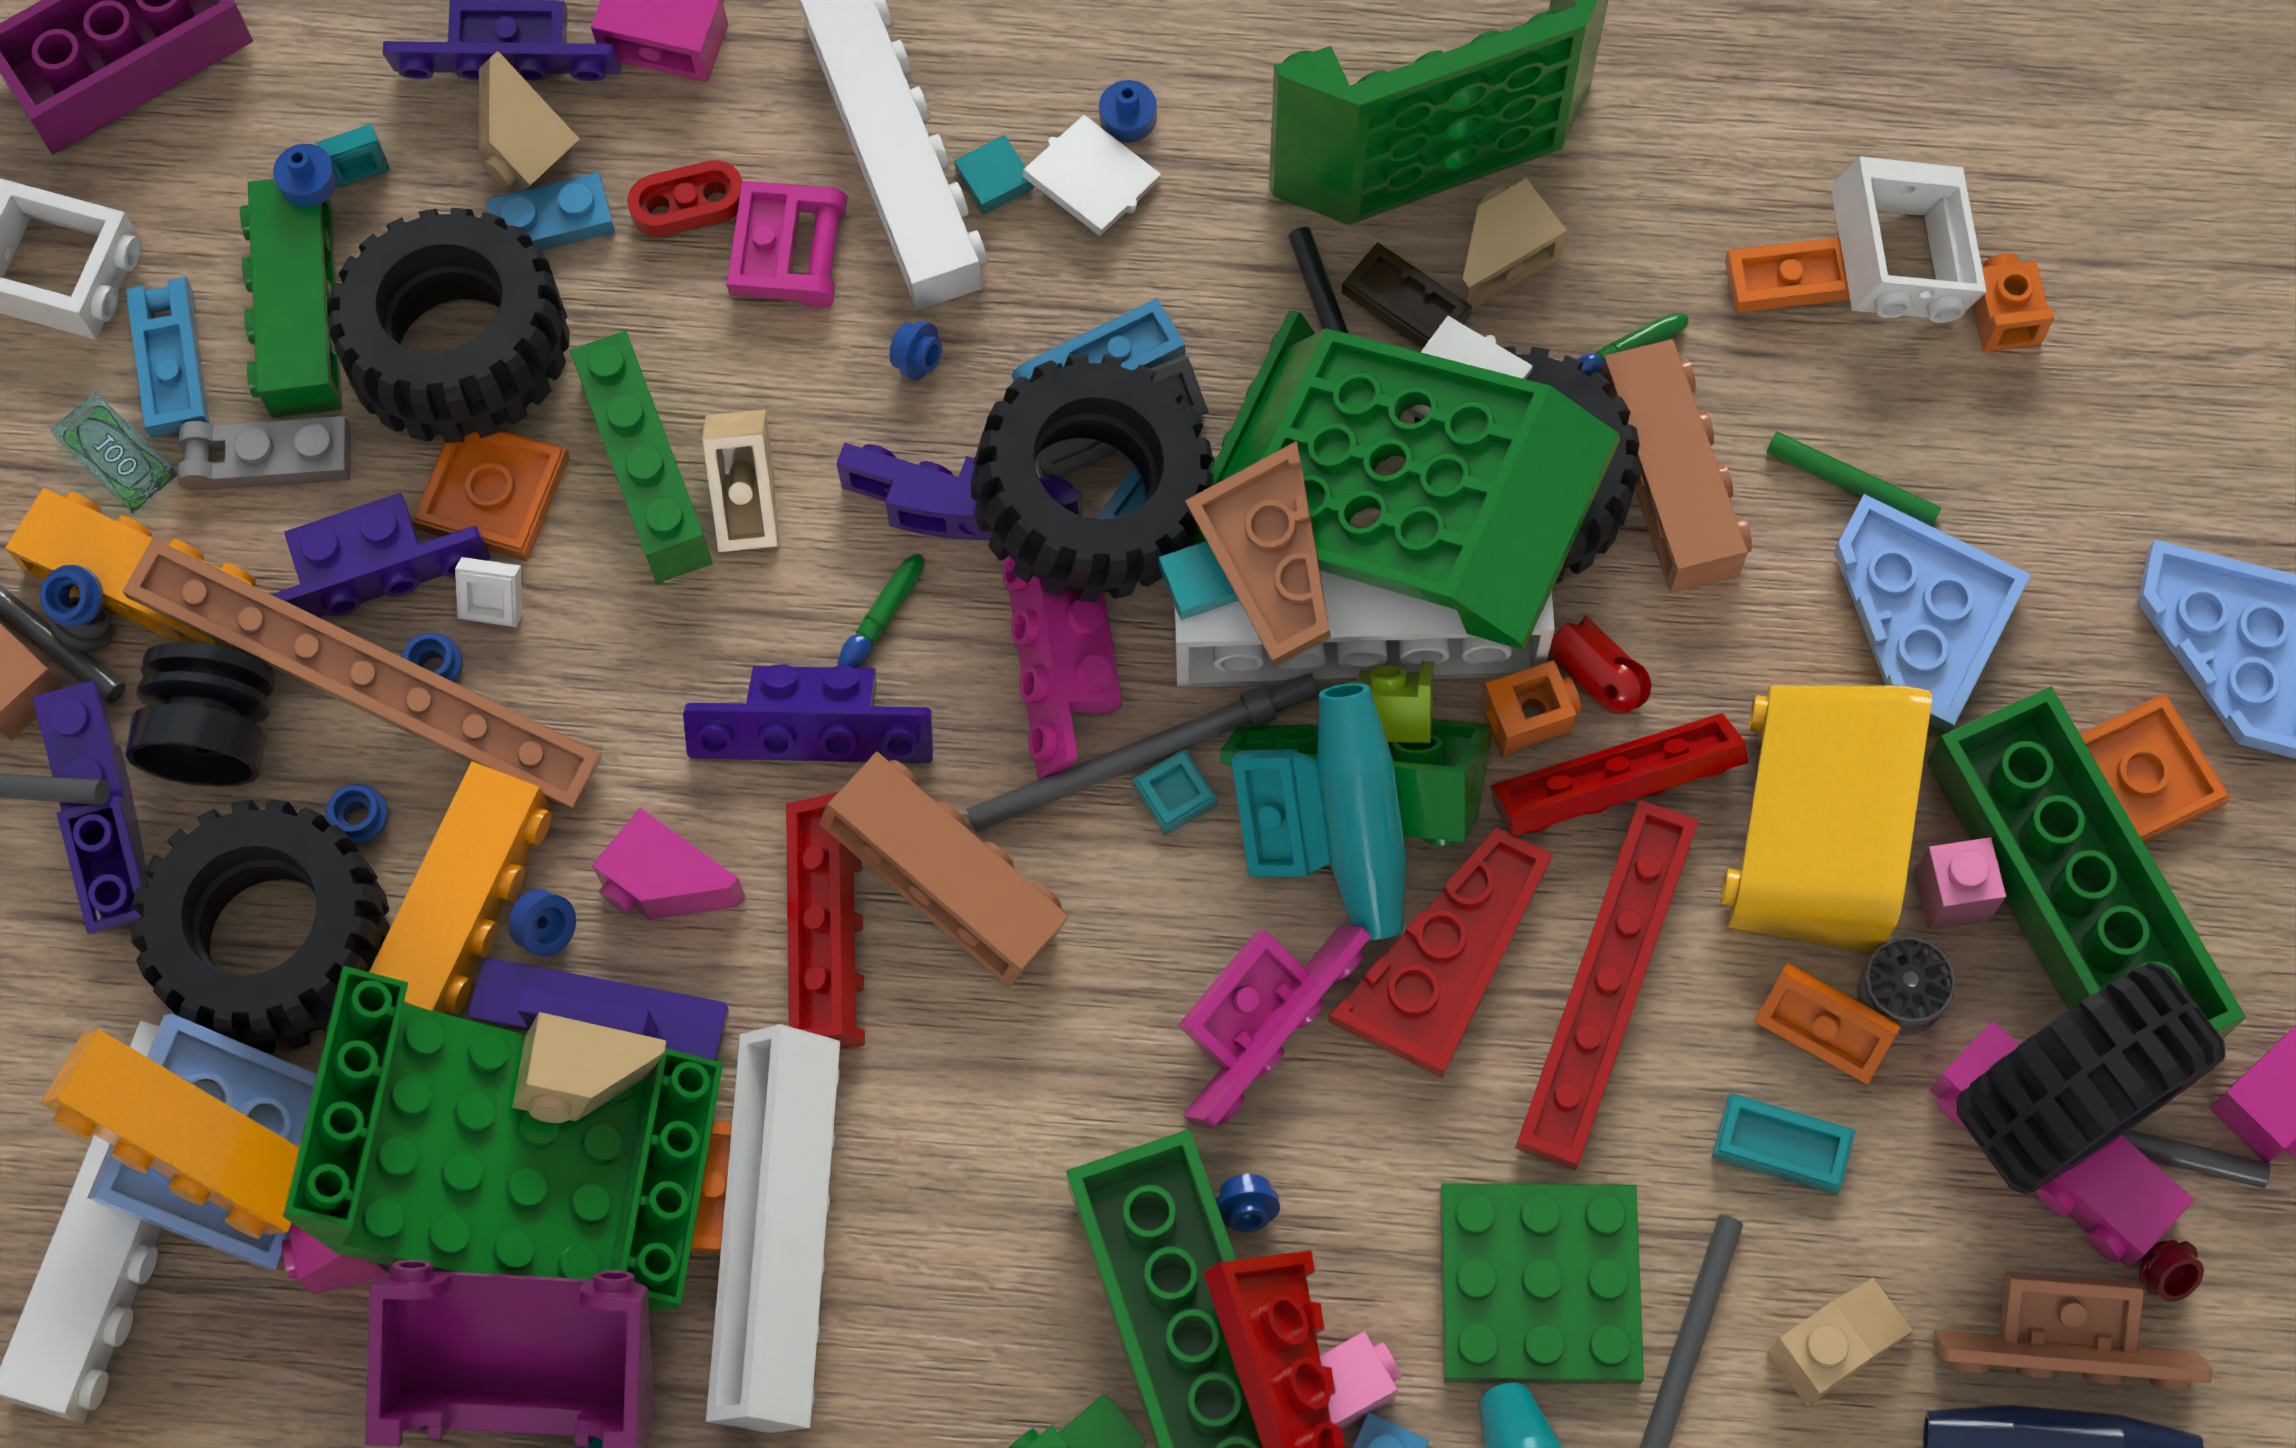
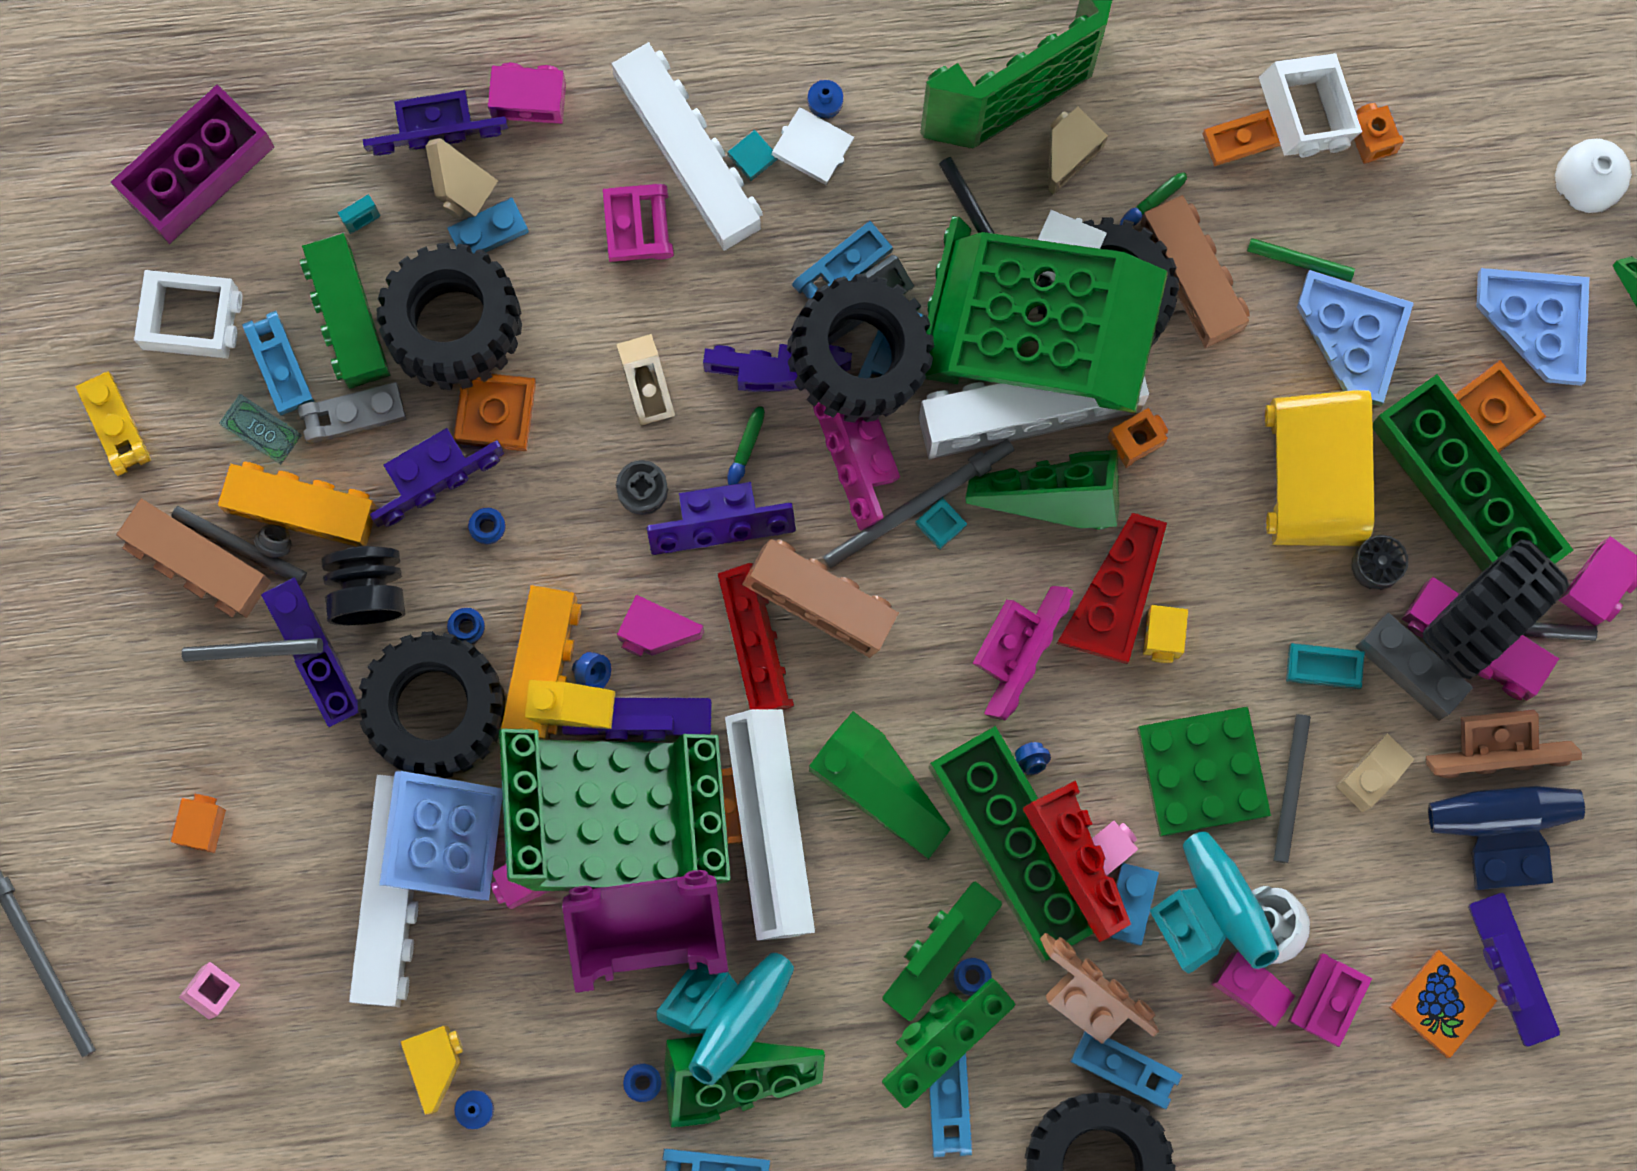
camera: 15 degrees left, 10 degrees up
(56, 590) = (257, 530): blue plate -> none
(175, 1130) = (426, 839): light orange brick -> none
(305, 175) = (338, 236): blue tile -> none
(361, 673) = (451, 543): nougat plate -> none
(477, 958) = (569, 704): none -> yellow slope
(489, 592) = (512, 477): white tile -> none
(579, 1067) = (639, 755): tan slope -> none
(641, 457) = (583, 376): green brick -> none
(686, 196) = (568, 203): red plate -> none
(695, 645) = (642, 487): none -> dark grey wheel
(915, 349) = (731, 278): blue plate -> none
(970, 1185) = (875, 779): none -> green wedge
(1195, 580) = (938, 402): teal tile -> none
(1268, 551) = (977, 382): nougat wing -> none
(1330, 810) = (1036, 524): teal plate -> none
(1402, 295) = (1018, 193): dark brown plate -> none
(1403, 701) = (1059, 450): lime brick -> none
(1515, 1035) = (1165, 633): none -> yellow brick
(1600, 667) = (1175, 404): red piece -> none
(1606, 985) = (1211, 592): red plate -> none
(1619, 774) = (1196, 467): red plate -> none
(1827, 1023) = (1339, 593): orange plate -> none
(1937, 1169) = (1414, 667): none -> dark grey brick
(1960, 883) = (1401, 497): bright pink brick -> none
(2171, 1270) = (1551, 698): dark red plate -> none

